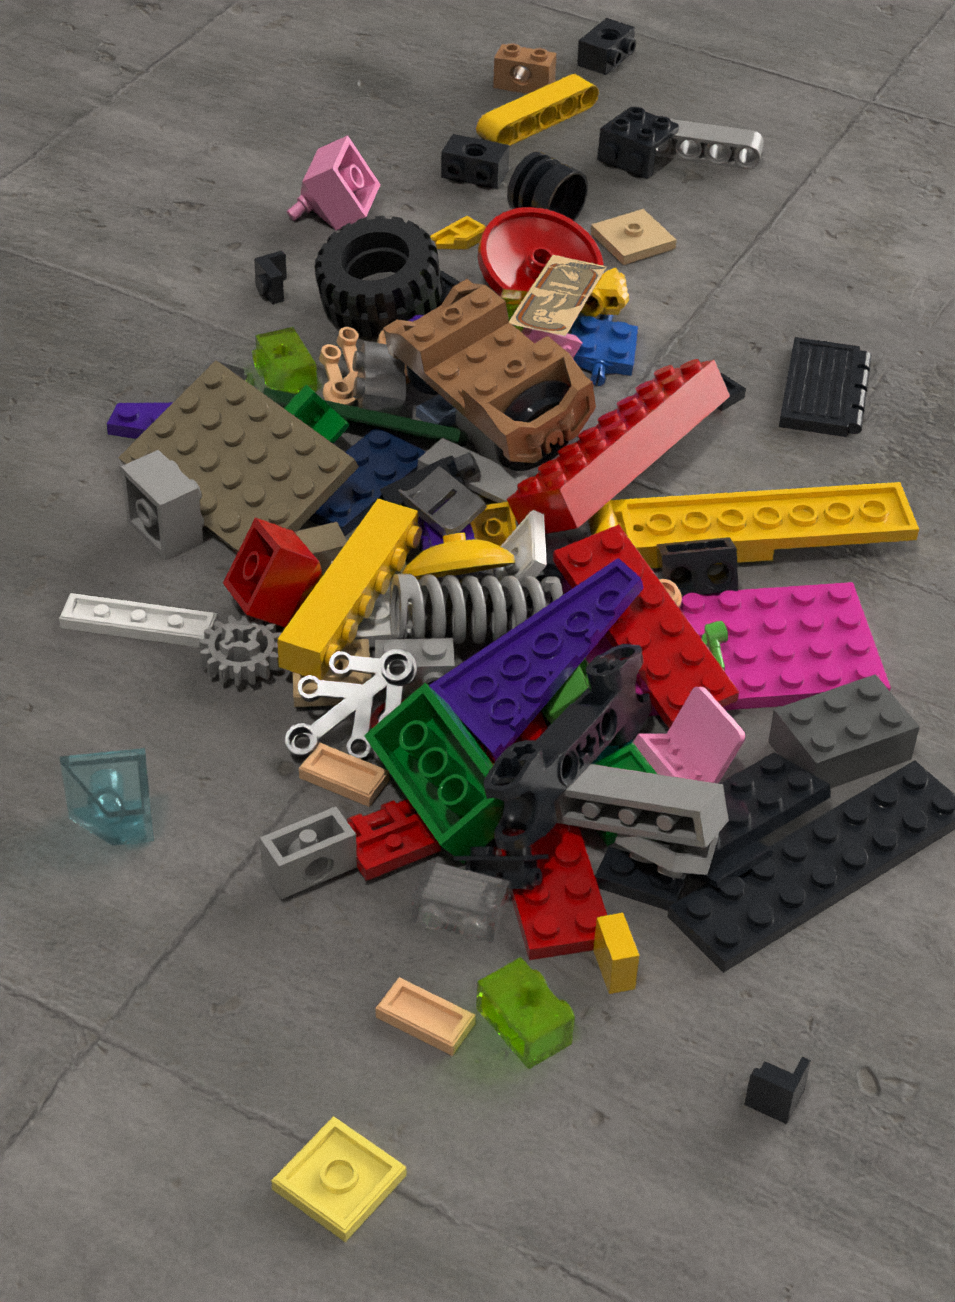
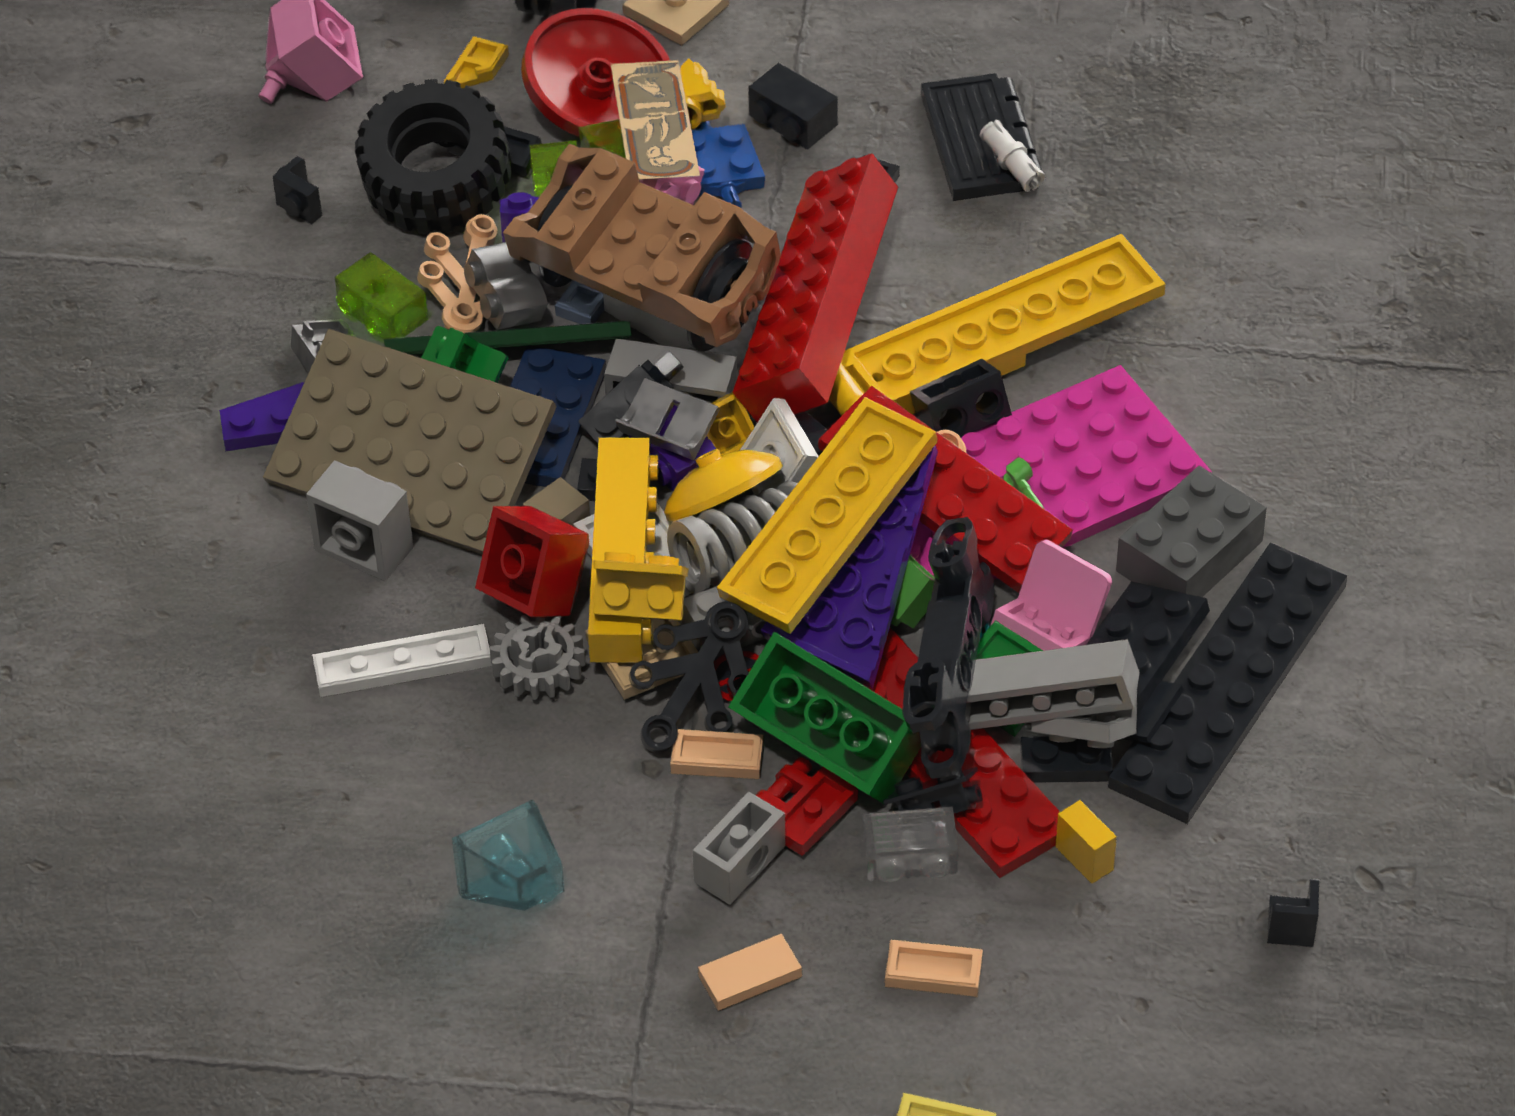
camera: 20 degrees left, 5 degrees up
(263, 961) = (749, 972): none -> light nougat tile
(334, 611) = (639, 588): none -> yellow bracket
(520, 606) = (827, 515): none -> yellow plate
(525, 1012) = (1029, 930): clear neon green brick -> none
(682, 324) = (793, 106): none -> black brick
(839, 403) = (1012, 155): none -> white pin

